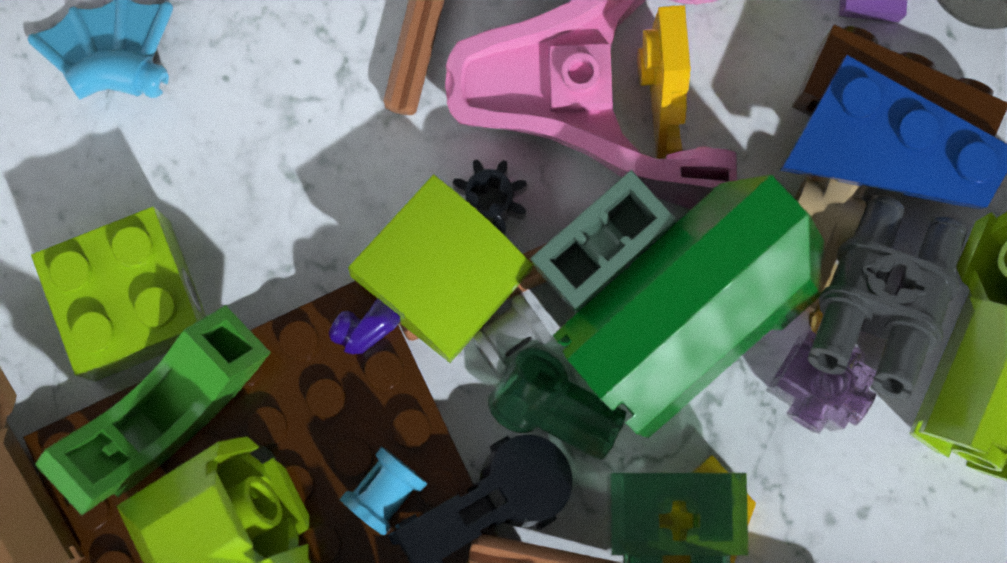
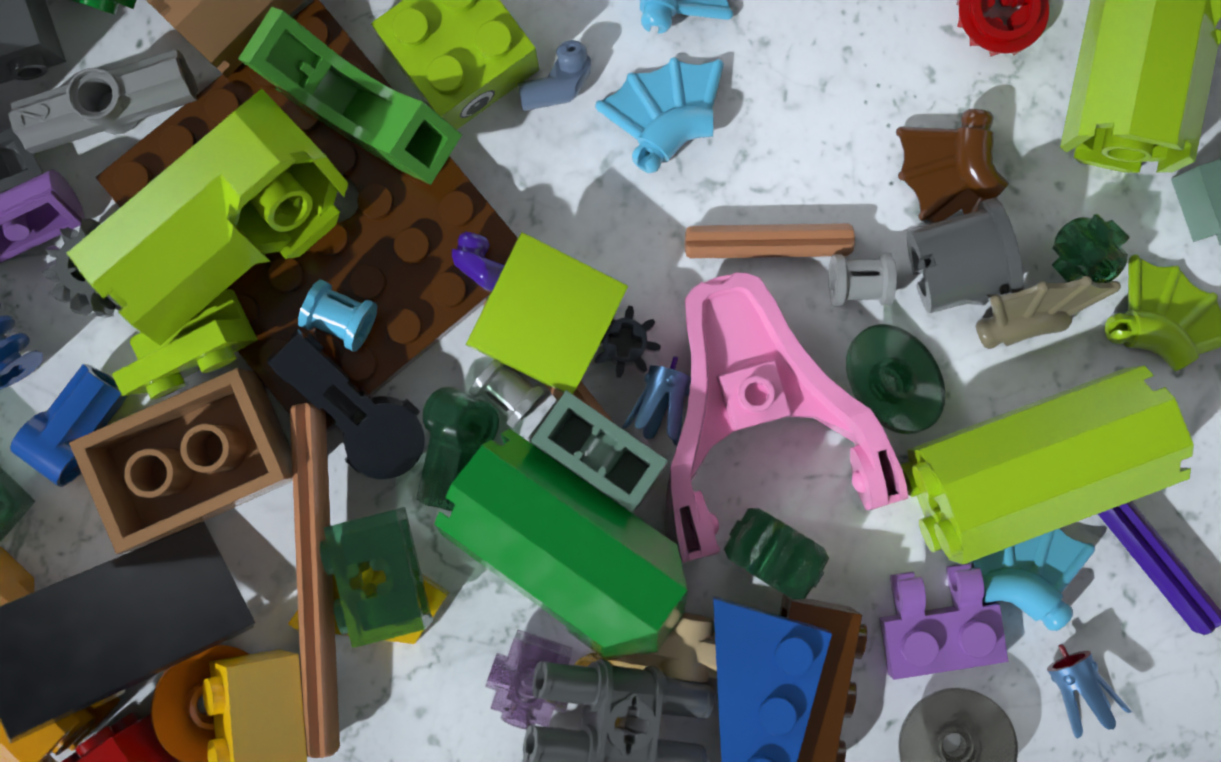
camera: 75 degrees right, 5 degrees up
(191, 196) = (563, 80): none -> sand blue arm
(250, 97) = (665, 109): none -> medium azure arm
(545, 173) = (663, 389): none -> flat silver piece
(666, 68) = (783, 469): yellow wing -> none
(750, 94) = (776, 553): none -> clear green gear

